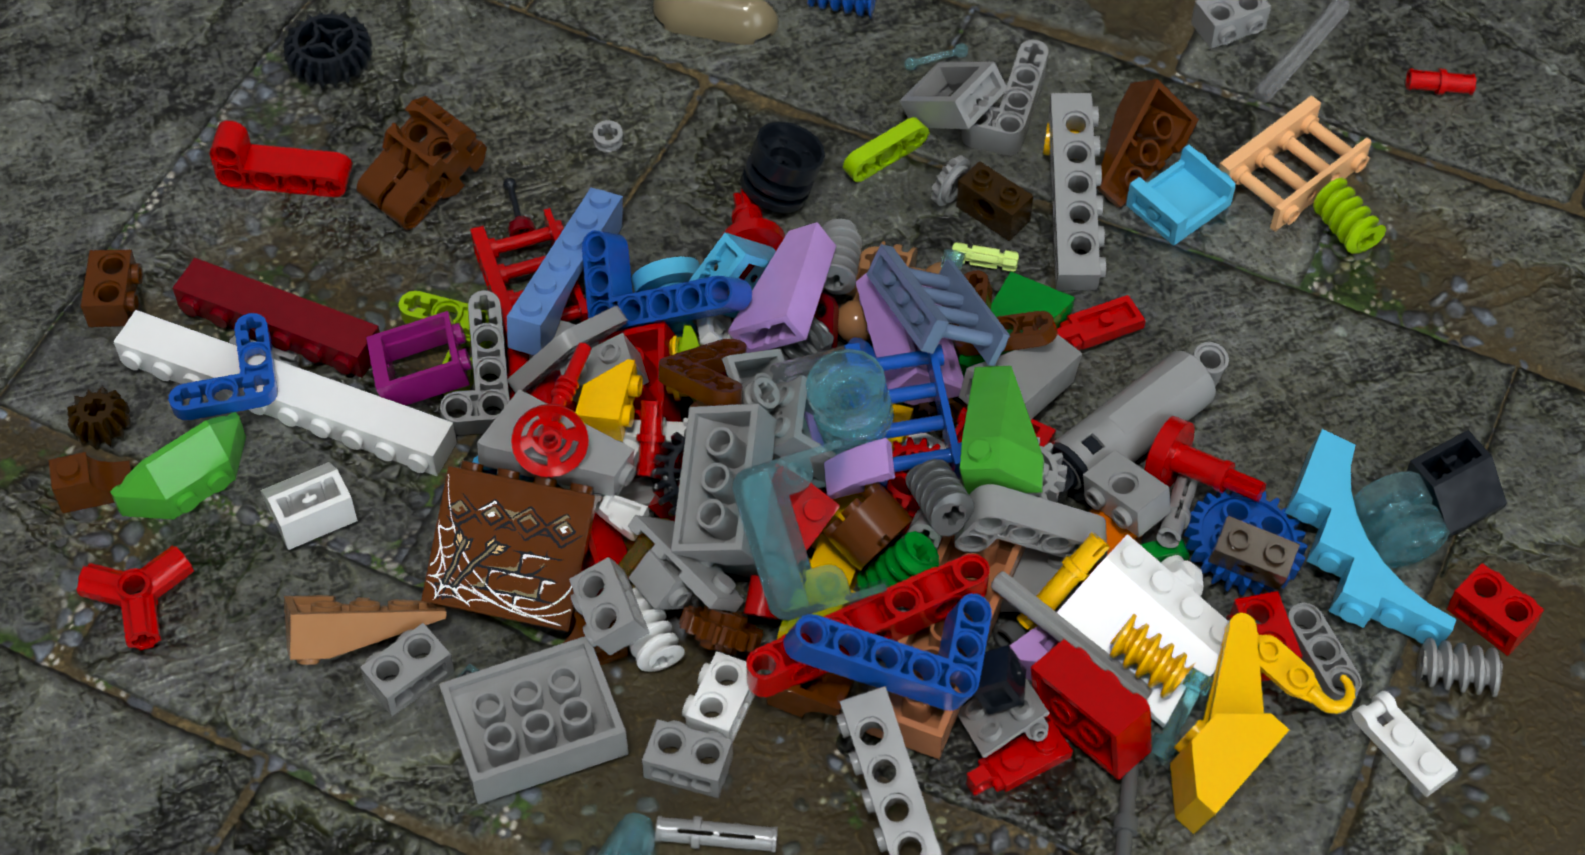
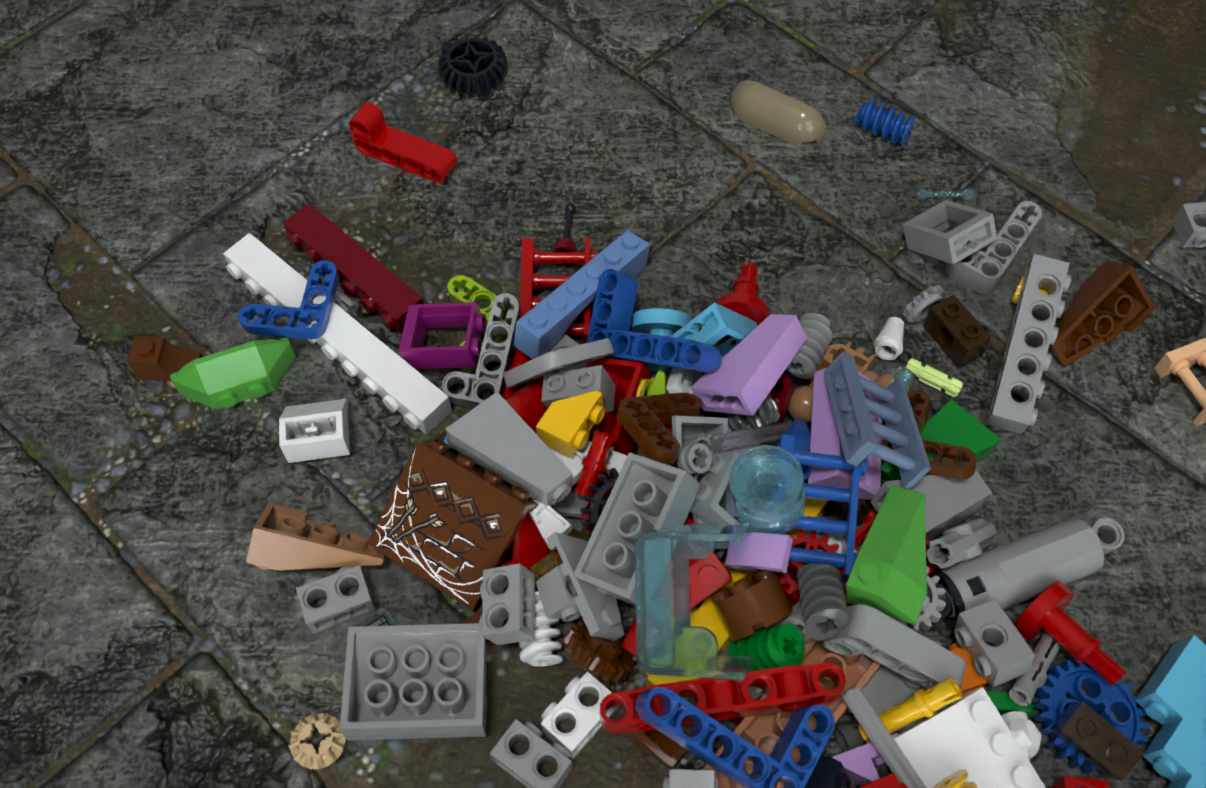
camera: 20 degrees right, 5 degrees up
(98, 417) = (192, 310): dark brown gear -> none
(110, 288) = (242, 208): reddish brown brick -> none
(138, 610) = (147, 455): red piece -> none
(411, 172) = (505, 174): reddish brown connector -> none
(437, 830) = (329, 749): none -> tan gear
(552, 430) = (506, 434): red dish -> none
(605, 127) = (659, 182): light grey bush -> none
(782, 167) = (787, 254): black wheel -> none
(885, 149) = (878, 261): lime beam -> none
(925, 229) = (890, 339): none -> white cone
(1065, 409) = (961, 543): none -> light grey piece
(1101, 323) = (1017, 467): red hinge -> none
(1182, 196) = (1122, 371): medium azure panel -> none

